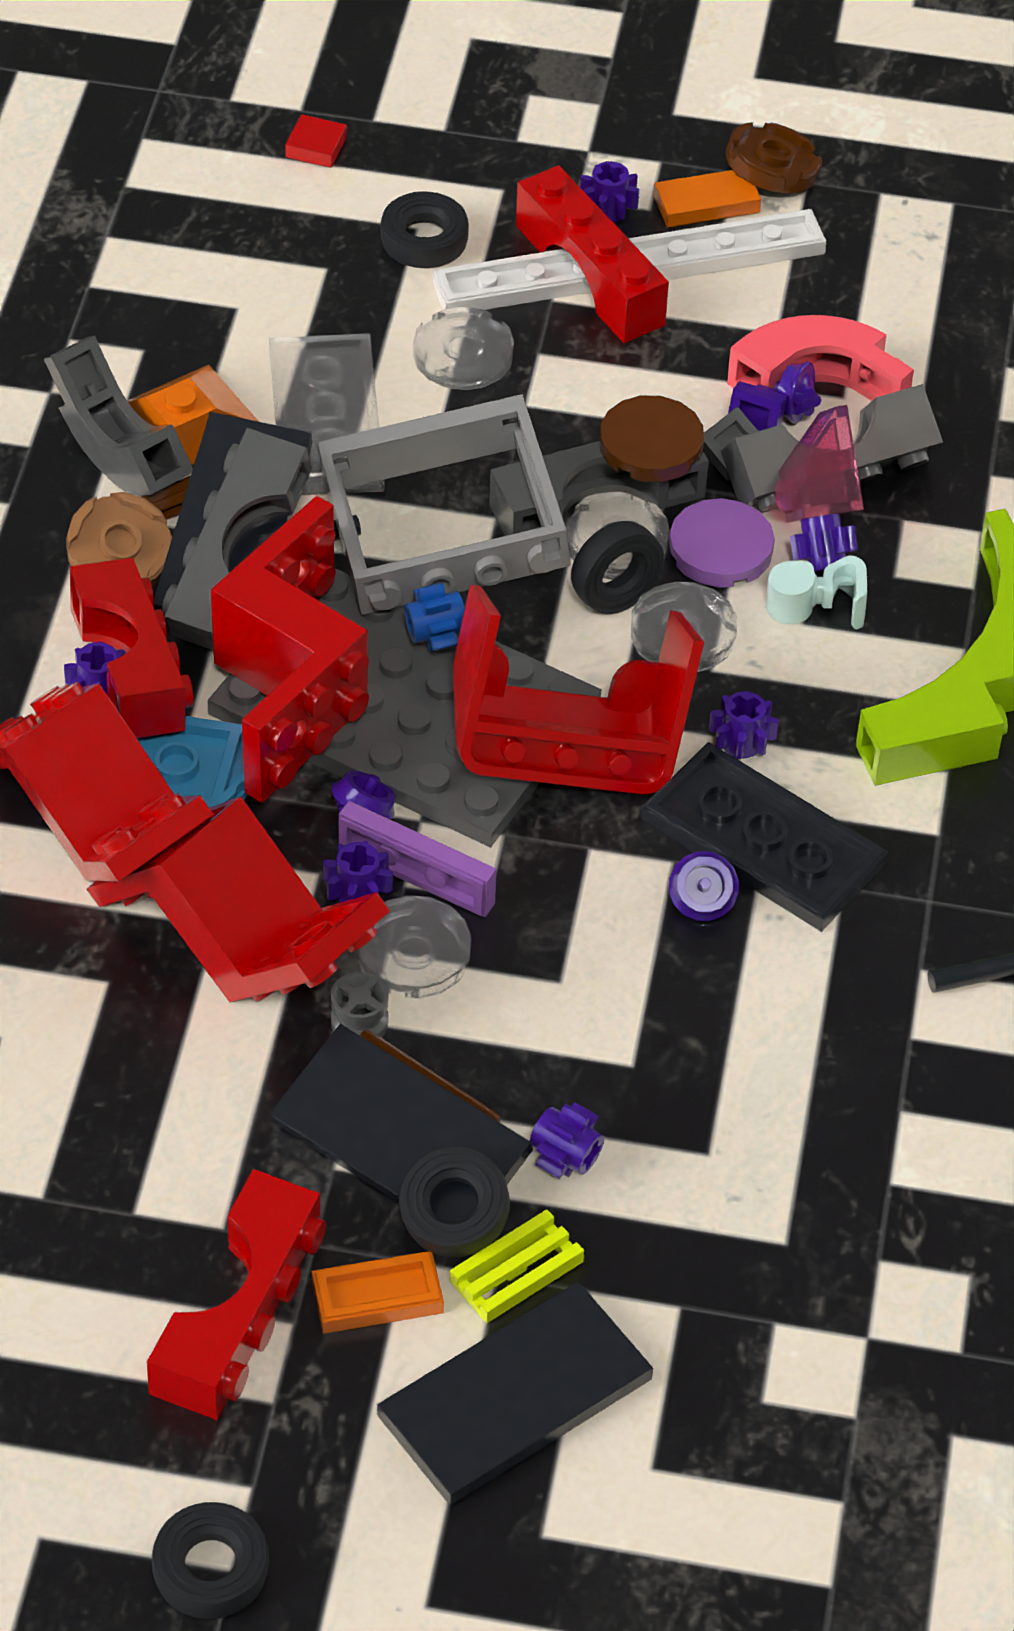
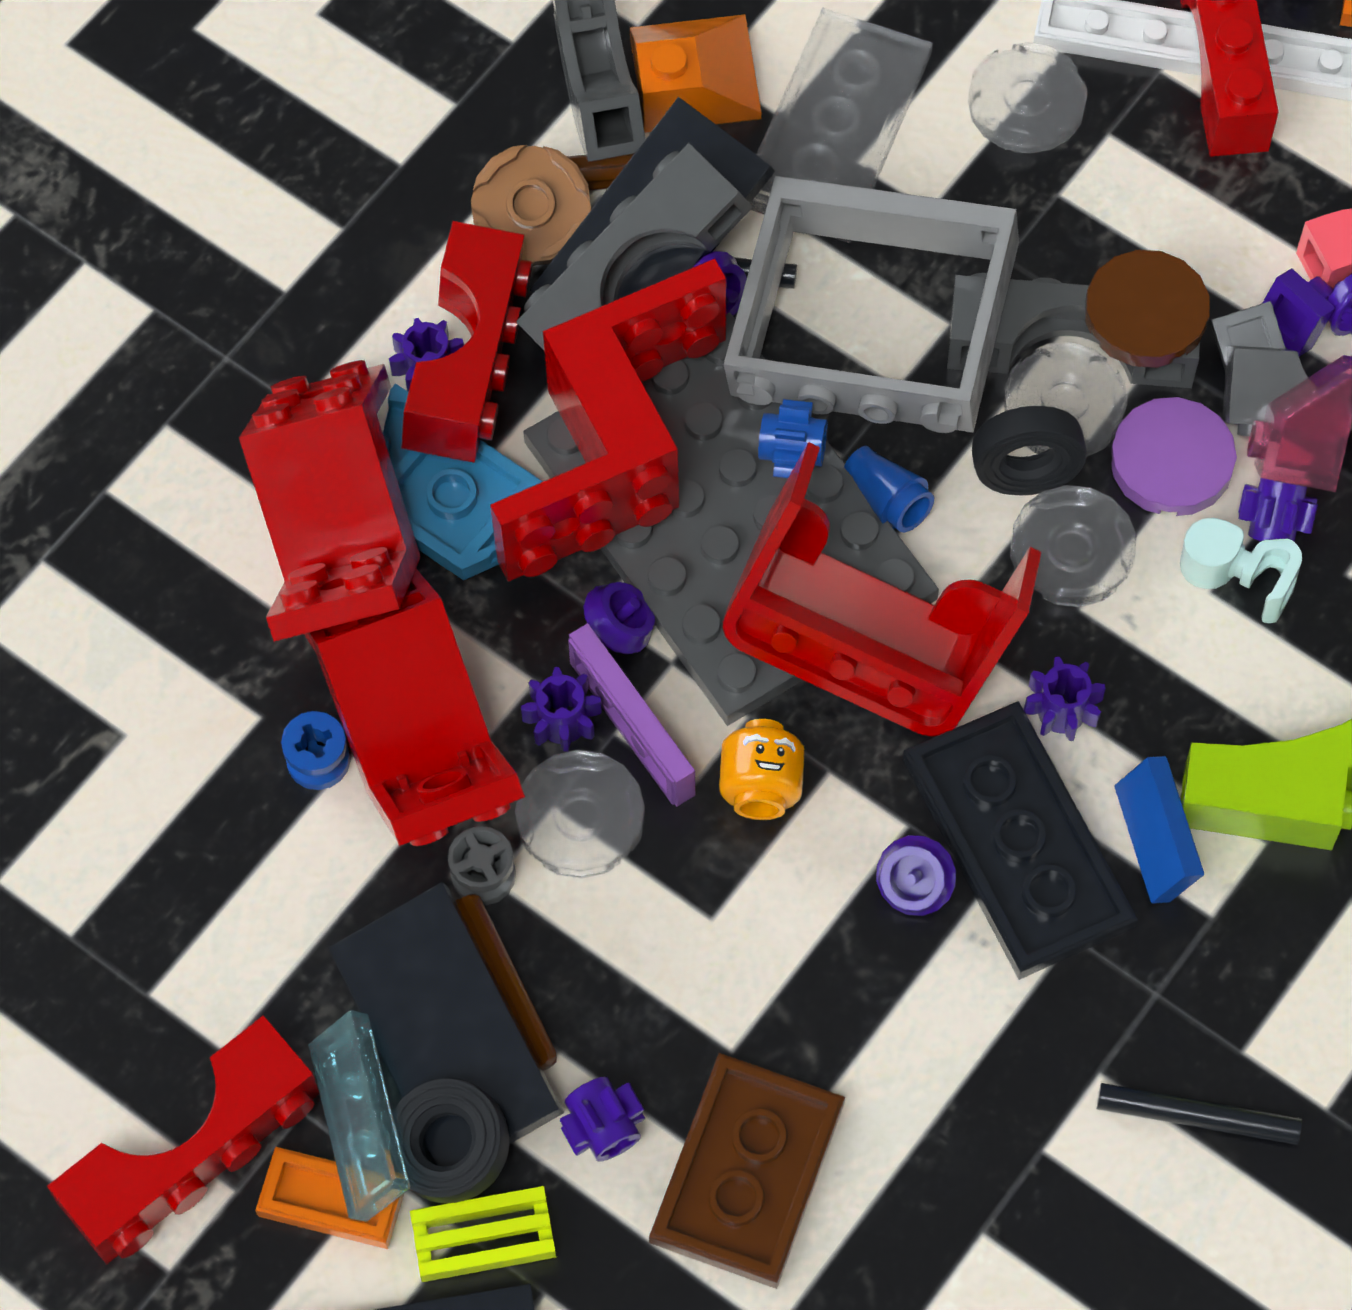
camera: 30 degrees right, 15 degrees up
(175, 994) = (319, 765): none -> blue wheel
(374, 1214) = (359, 1116): none -> clear light blue tile
(530, 636) = (890, 489): none -> blue cone
(543, 855) = (761, 770): none -> light orange head
(697, 1139) = (747, 1170): none -> reddish brown tile
(868, 783) = (1159, 829): none -> blue tile

